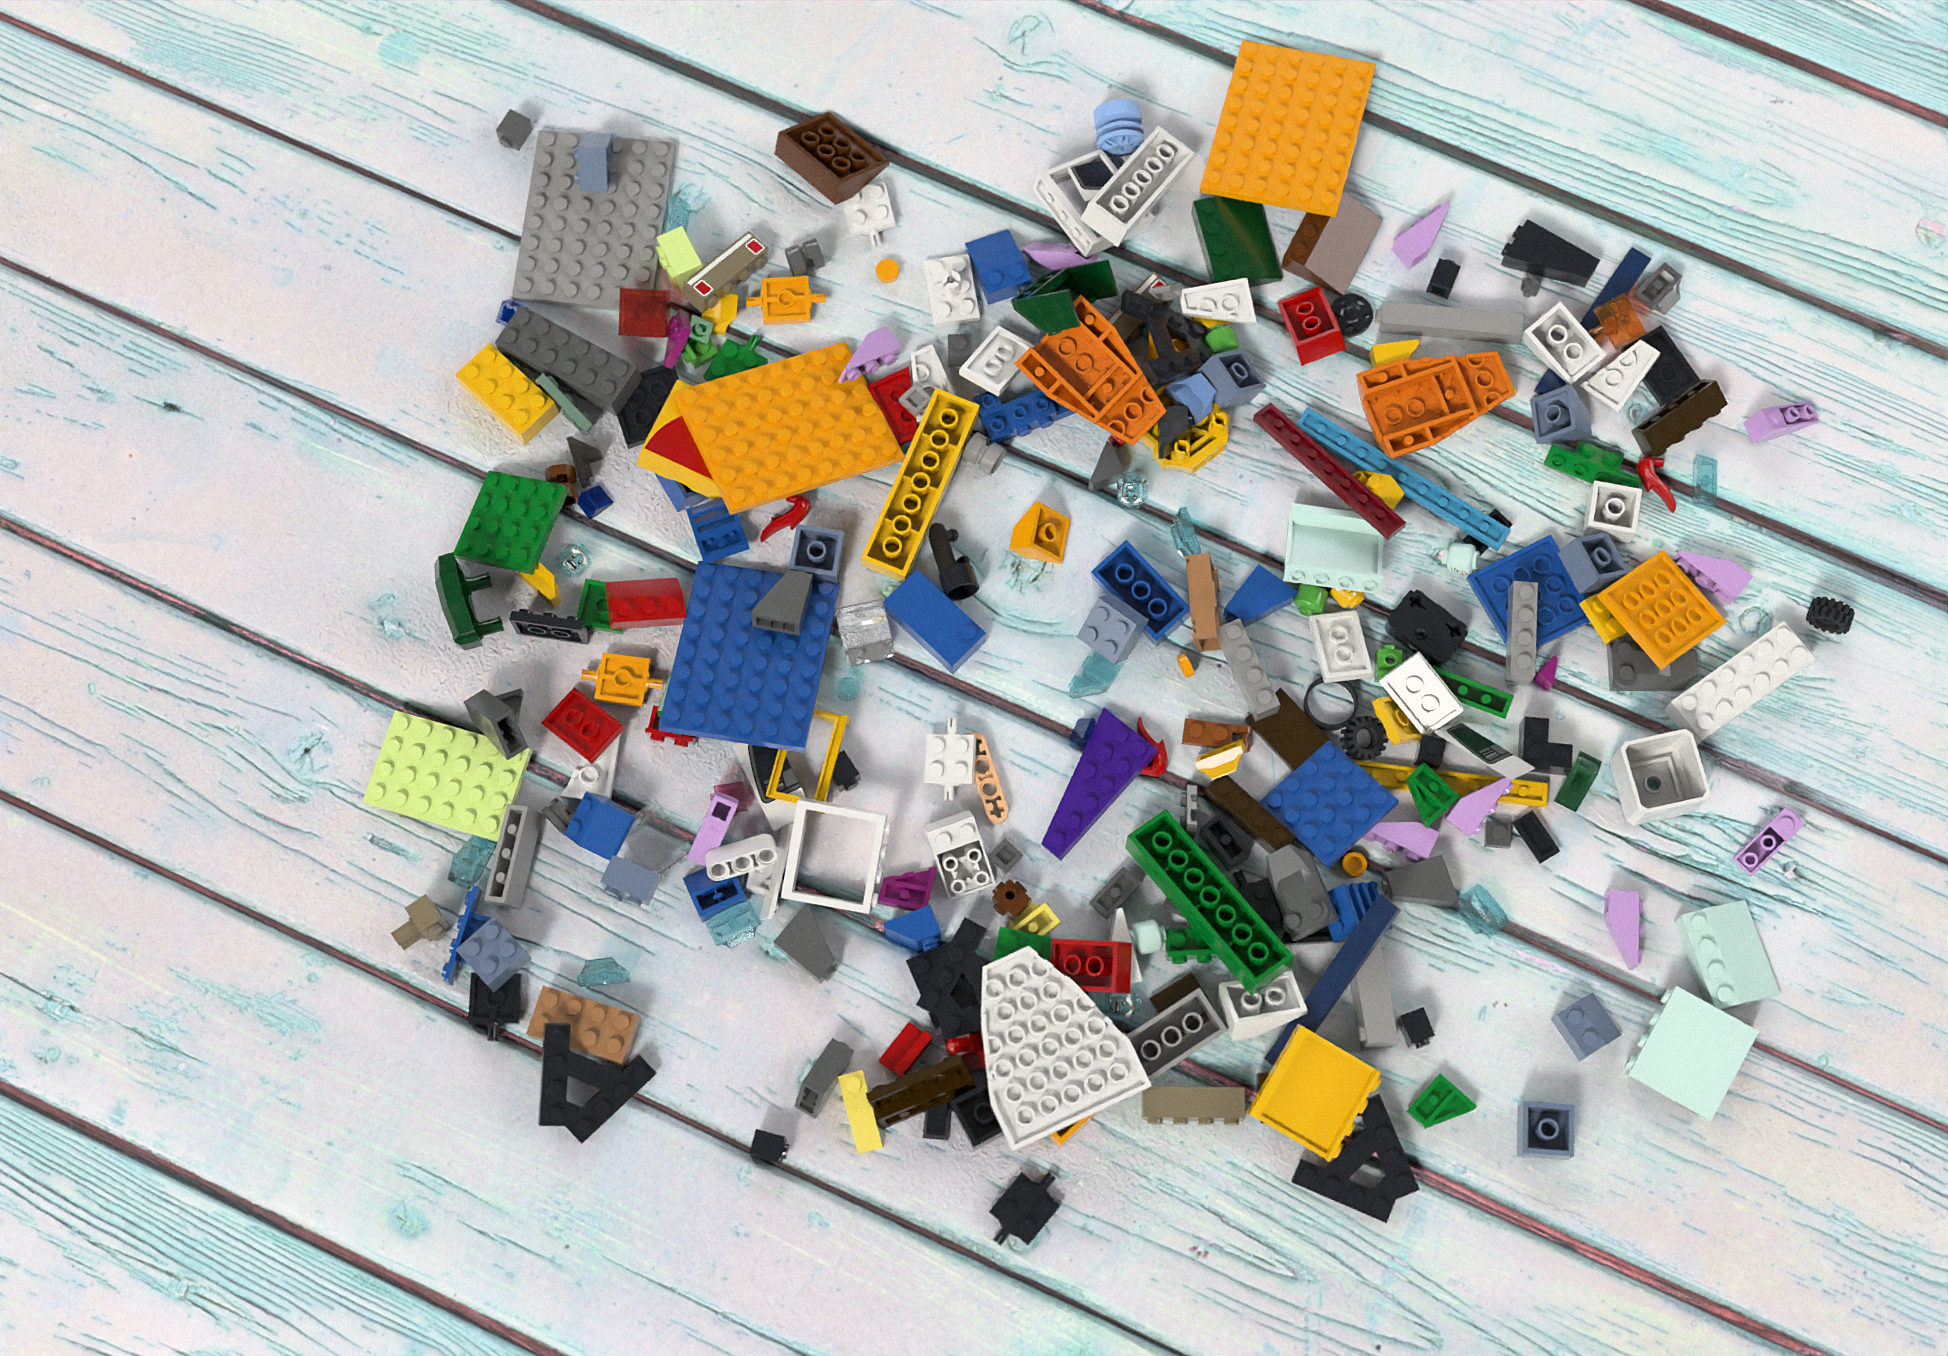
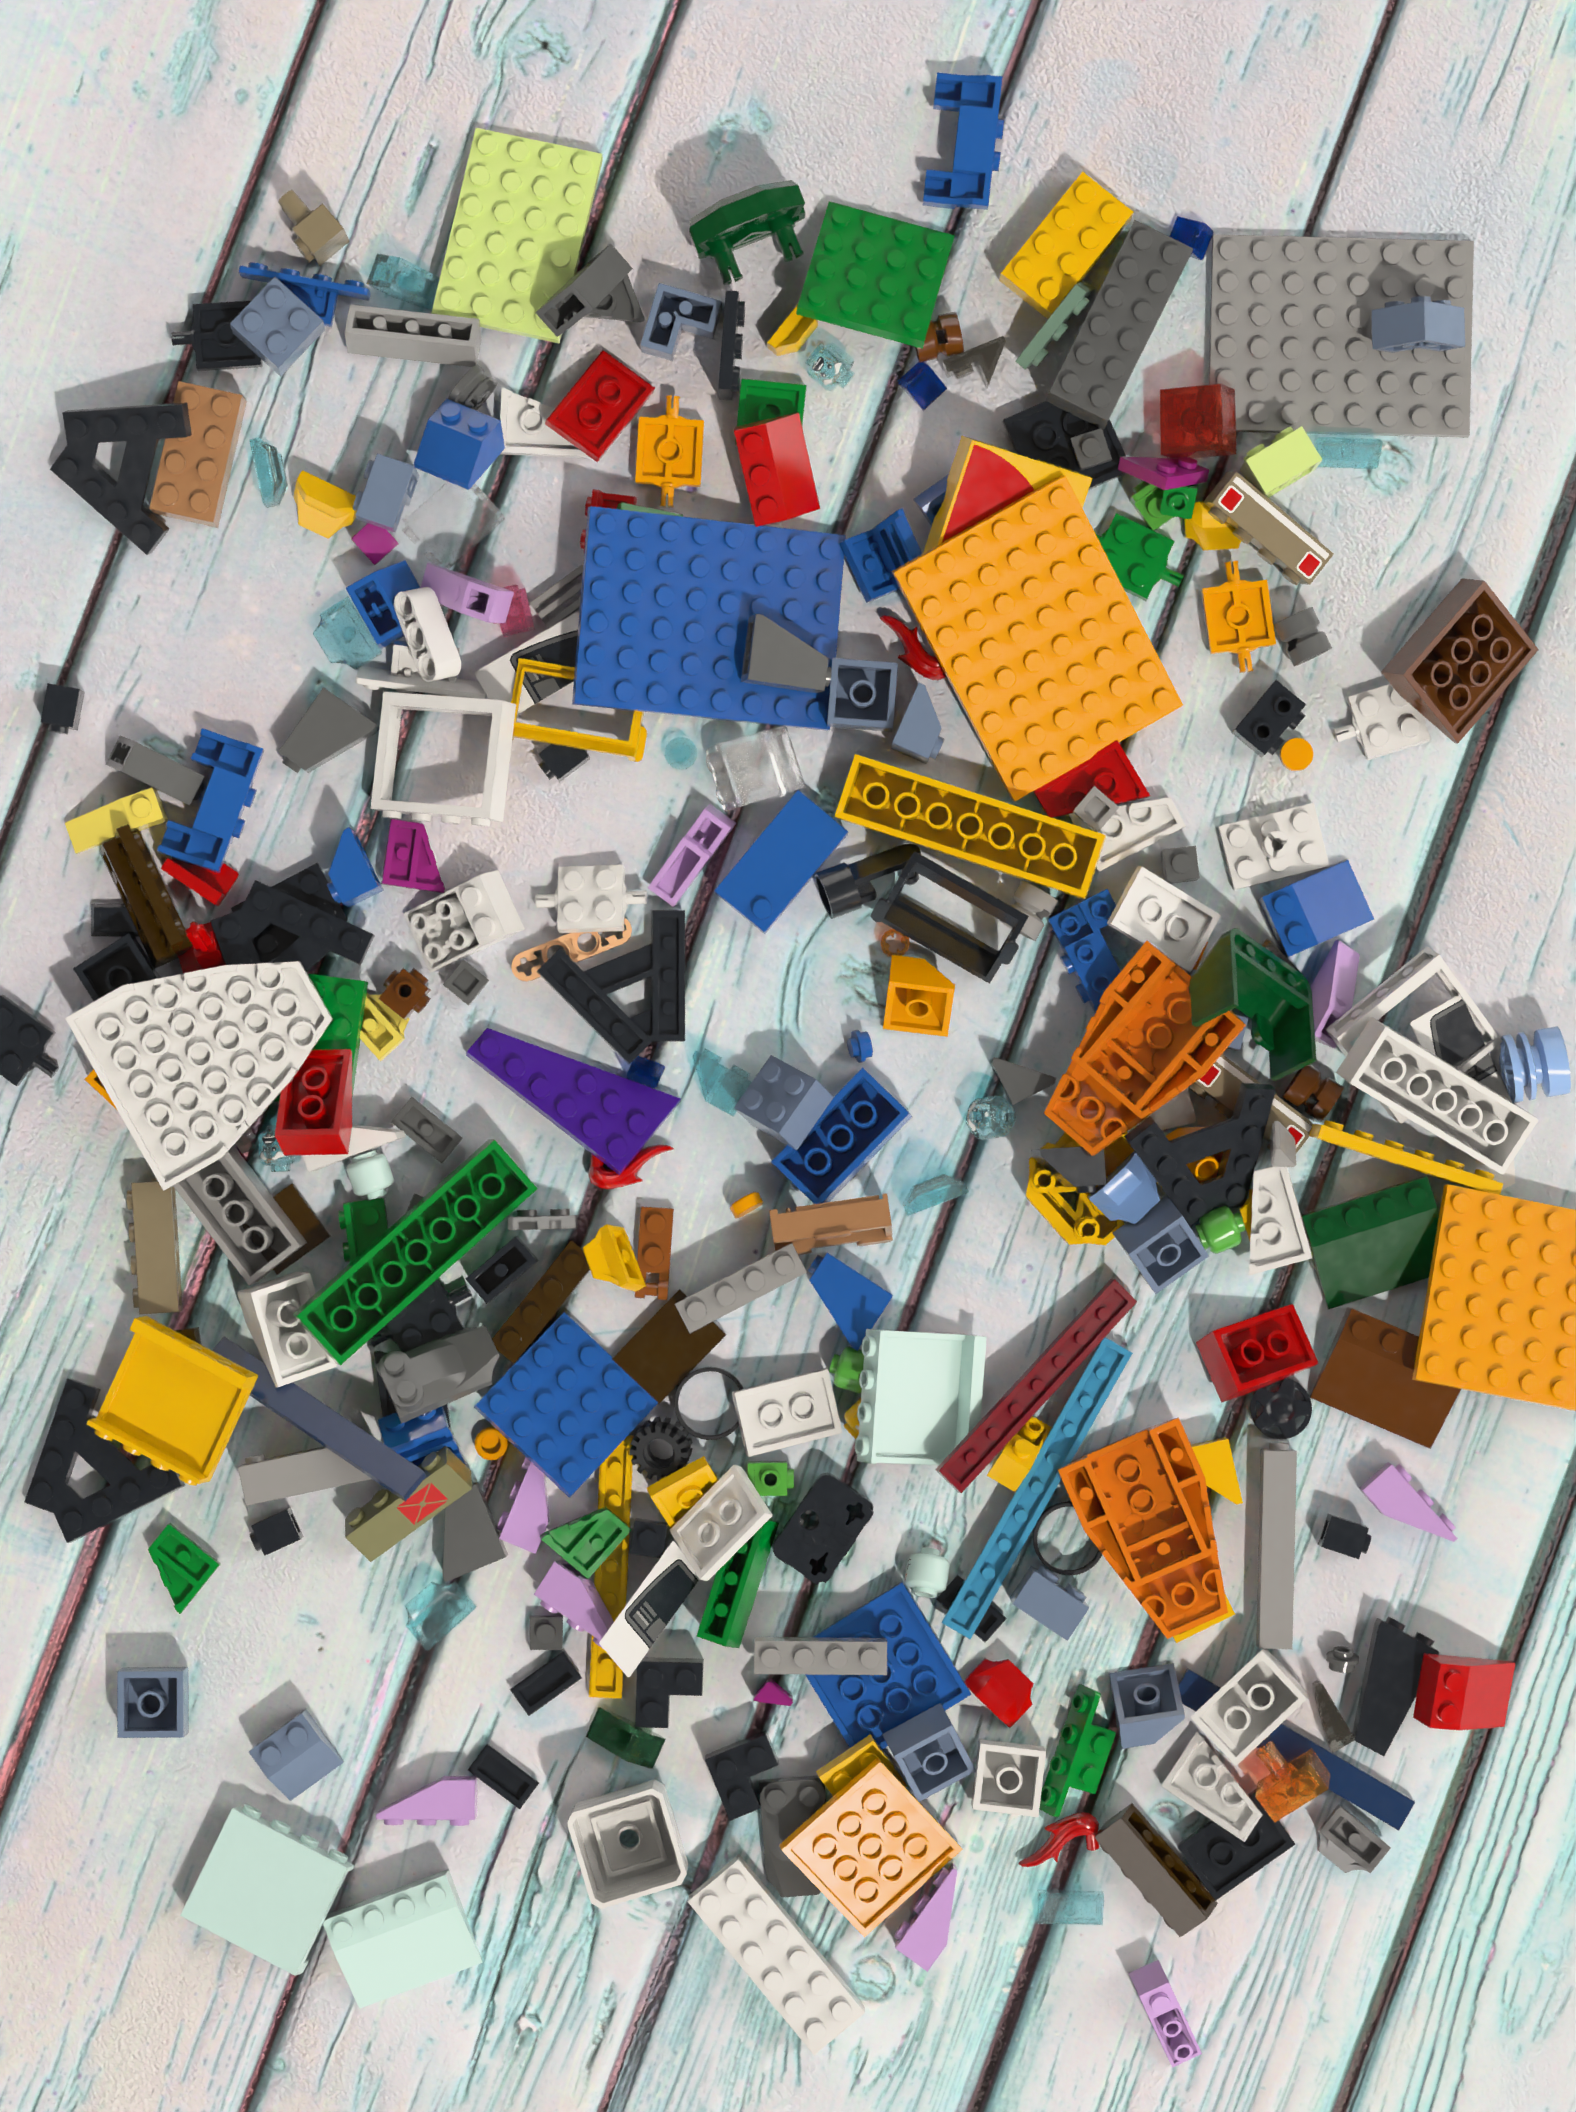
camera: 90 degrees right, 15 degrees up
(422, 448) = (977, 130): none -> blue bracket
(514, 130) = (1468, 205): dark grey brick -> none
(520, 663) = (678, 311): none -> sand blue brick
(634, 935) = (322, 505): none -> yellow slope
(655, 386) = (1090, 449): none -> dark grey plate
(666, 900) = (374, 542): none -> magenta slope
(712, 746) = (562, 599): none -> light grey tile
(845, 514) = (919, 729): none -> sand blue slope
(855, 1026) = (222, 804): none -> blue bracket
(861, 284) = (1269, 719): none -> black brick
(876, 350) = (1166, 745): lavender slope -> none
(923, 685) = (691, 855): none -> lavender slope
(997, 543) = (885, 946): none -> clear orange bush
(1000, 714) = (660, 960): none -> black plate
(1001, 510) = (942, 936): none -> black piece
(1073, 577) = (860, 1045): none -> blue plate
(1130, 271) = (1313, 1092): none -> reddish brown wheel
(1175, 222) = (1393, 1153): none -> yellow plate
(1407, 933) = (391, 1519): none -> olive brick
(1457, 447) = (1035, 1532): none -> black tyre
(1485, 472) = (1049, 1602): none -> sand blue brick
(1546, 515) = (1001, 1689): none -> red slope
(1556, 208) = (1463, 1692): none -> slope
(1577, 294) = (1333, 1724): none -> clear smoke slope
(1603, 704) = (732, 1771): none -> black brick
(1605, 873) = (503, 1776): none -> black tile
(1769, 840) = (565, 1996): lavender slope -> none
(1830, 615) = (880, 2077): black tyre -> none

